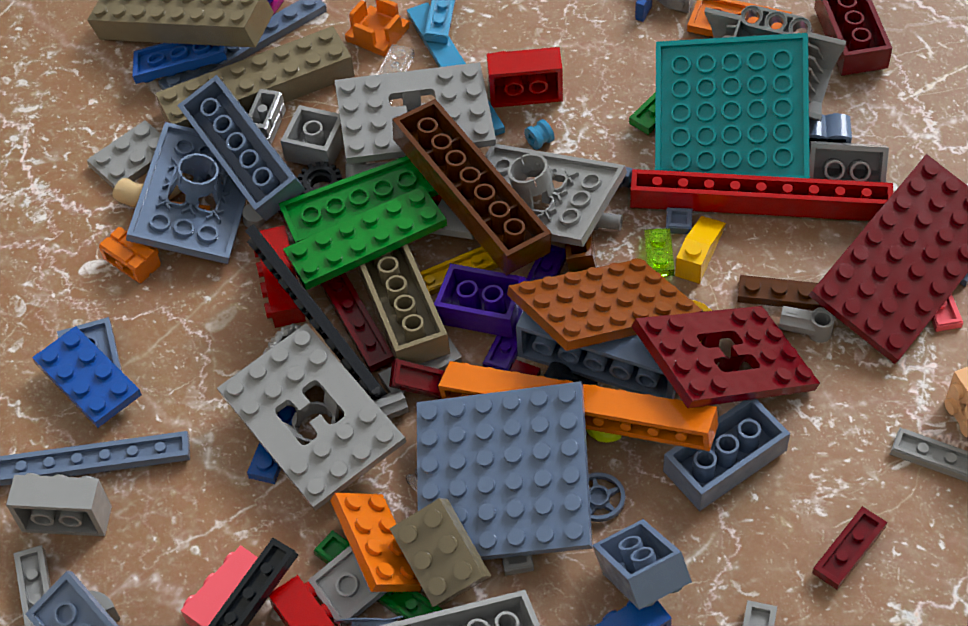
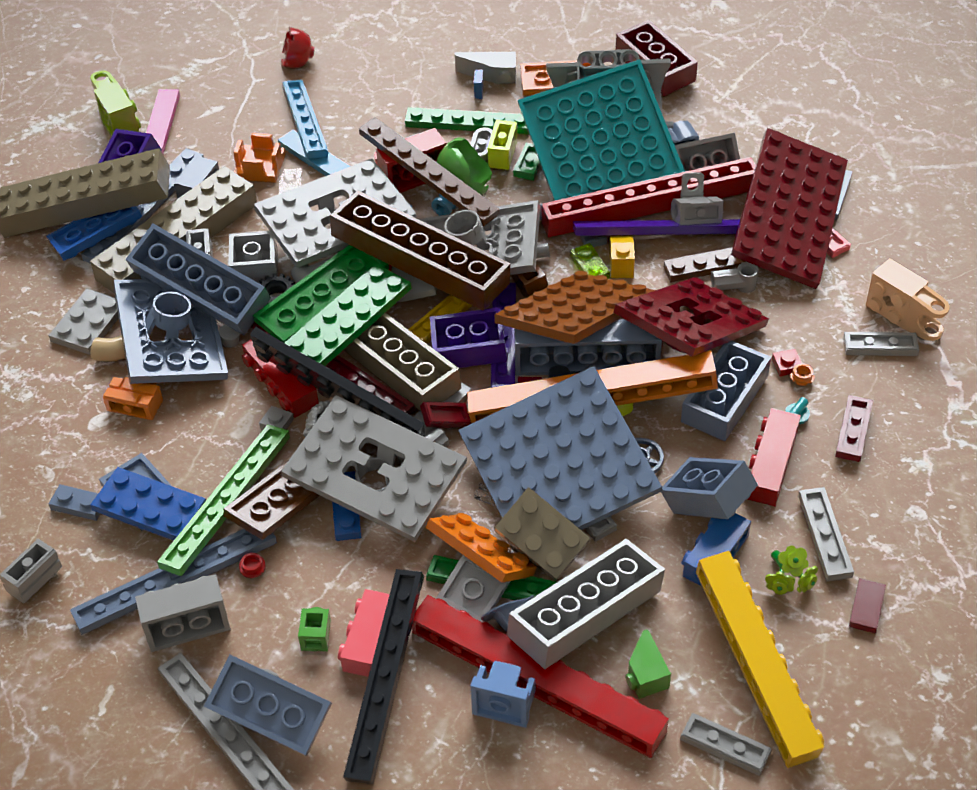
camera: 25 degrees left, 5 degrees down
(25, 345) = (74, 502): none -> sand blue plate
(154, 476) = (252, 565): none -> red plate
(158, 396) = (210, 515): none -> bright green plate
(167, 571) = (314, 629): none -> bright green brick
(193, 418) = (268, 504): none -> reddish brown plate
(254, 325) = (276, 417): none -> light grey plate
(304, 24) = (194, 173): none -> brick
(527, 97) = (428, 170): none -> plate
(571, 103) = (465, 164): none -> bright green piece
(603, 40) = (459, 119): none -> plate
(612, 77) = (481, 141): none -> light grey plate
(631, 84) = (502, 144): none -> neon yellow brick
(738, 549) = (773, 455): none -> brick
(747, 233) = (652, 227): none -> dark purple tile
(796, 506) = (800, 409): none -> teal plate
(801, 223) = (693, 206): none -> light grey piece
(816, 441) = (785, 361): none -> plate
(827, 457) = (802, 374): none -> orange plate

